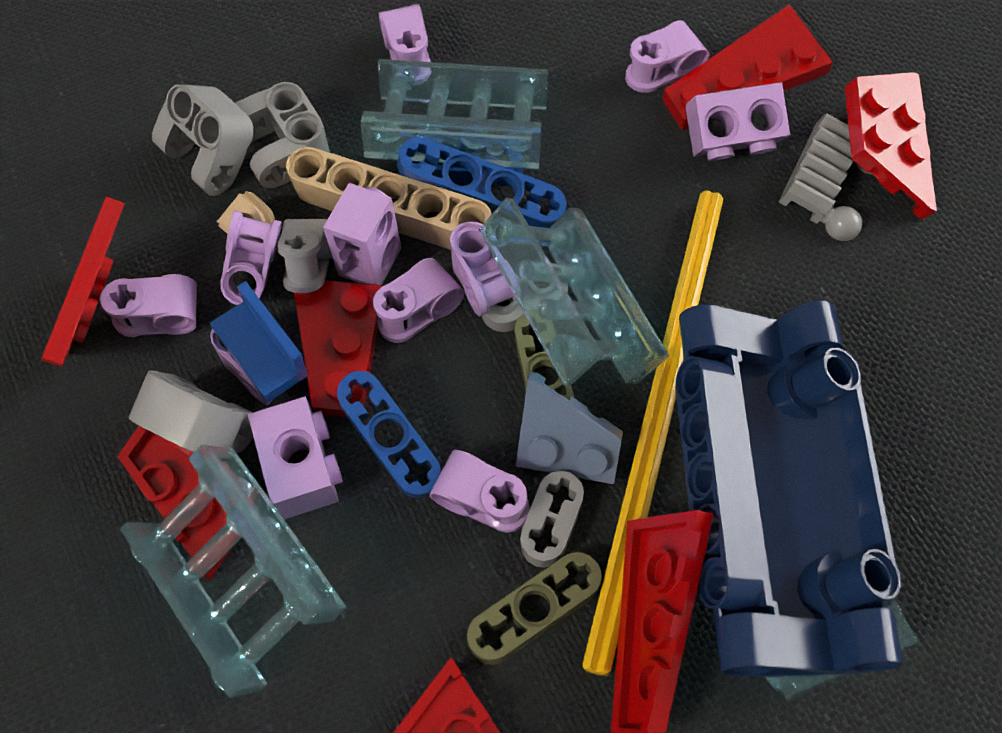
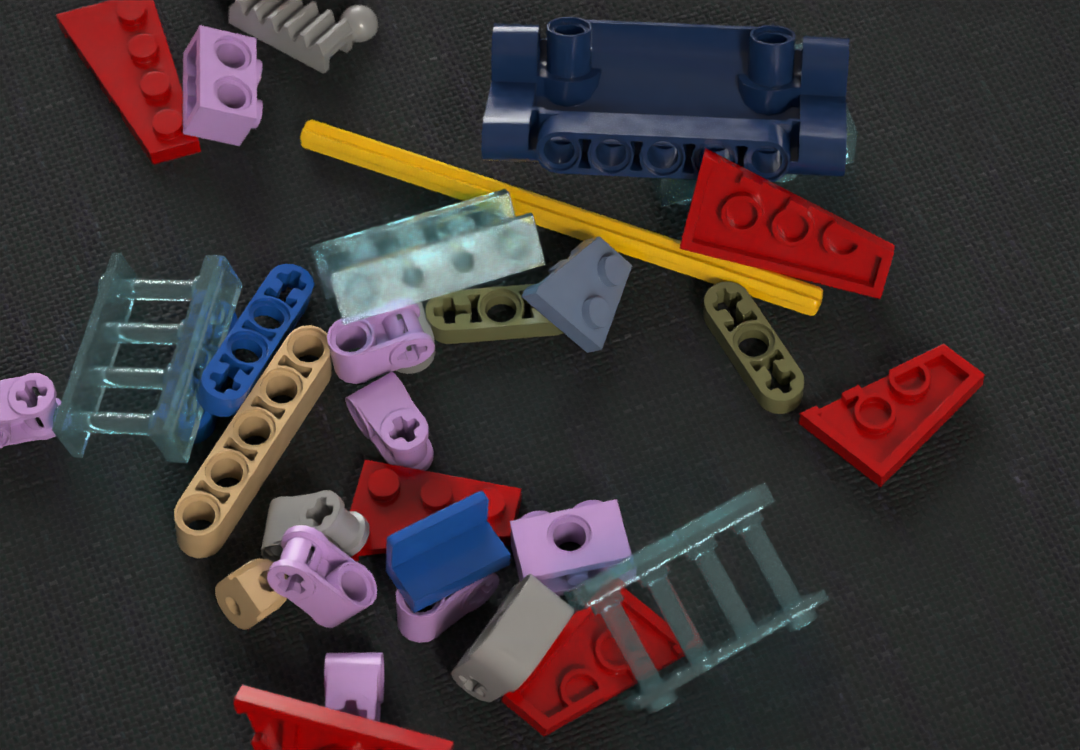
camera: 85 degrees left, 5 degrees down
(213, 123) = (114, 630): light grey piece -> none
(294, 120) = (124, 551): light grey piece -> none
(363, 235) = (313, 450): lavender brick -> none
(378, 397) = (545, 475): blue beam -> none
(474, 487) = (630, 375): lavender piece -> none
(562, 523) = (662, 323): light grey beam -> none
(664, 57) = (105, 147): lavender piece -> none

